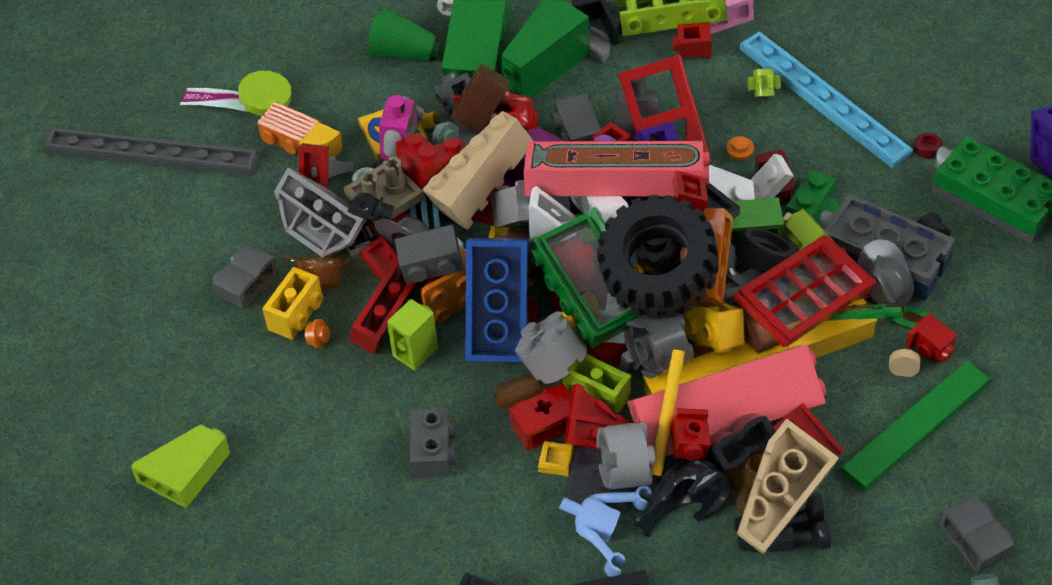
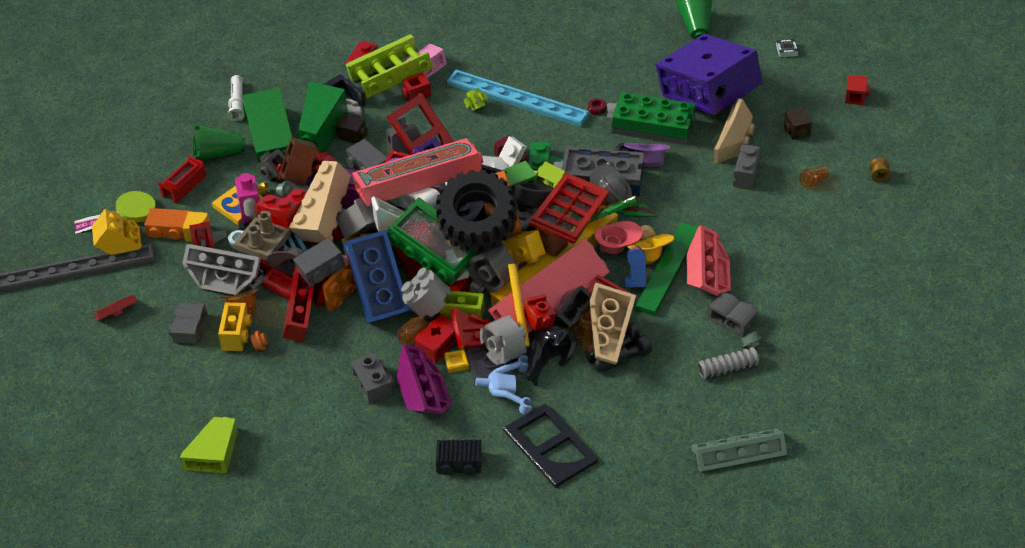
camera: 25 degrees left, 5 degrees down
(169, 224) = (115, 308): none -> red plate
(219, 123) = (115, 234): none -> yellow slope
(339, 75) = (183, 179): none -> red window
(369, 207) = (261, 248): black piece -> none
(413, 334) = (327, 317): lime brick -> none
(491, 478) = (421, 382): none -> magenta wedge
(581, 72) = (351, 128): none -> dark brown brick
(690, 188) = (476, 164): red plate -> none
(740, 148) = (481, 143): orange plate -> none
(862, 352) = (617, 236): none -> coral piece
(869, 405) = (637, 262): none -> blue leg
(901, 386) = (653, 246): none -> yellow piece
(932, 339) = (655, 216): red brick -> none
(971, 242) = (653, 153): none -> medium lavender piece
(975, 443) = (708, 263): none -> coral wedge

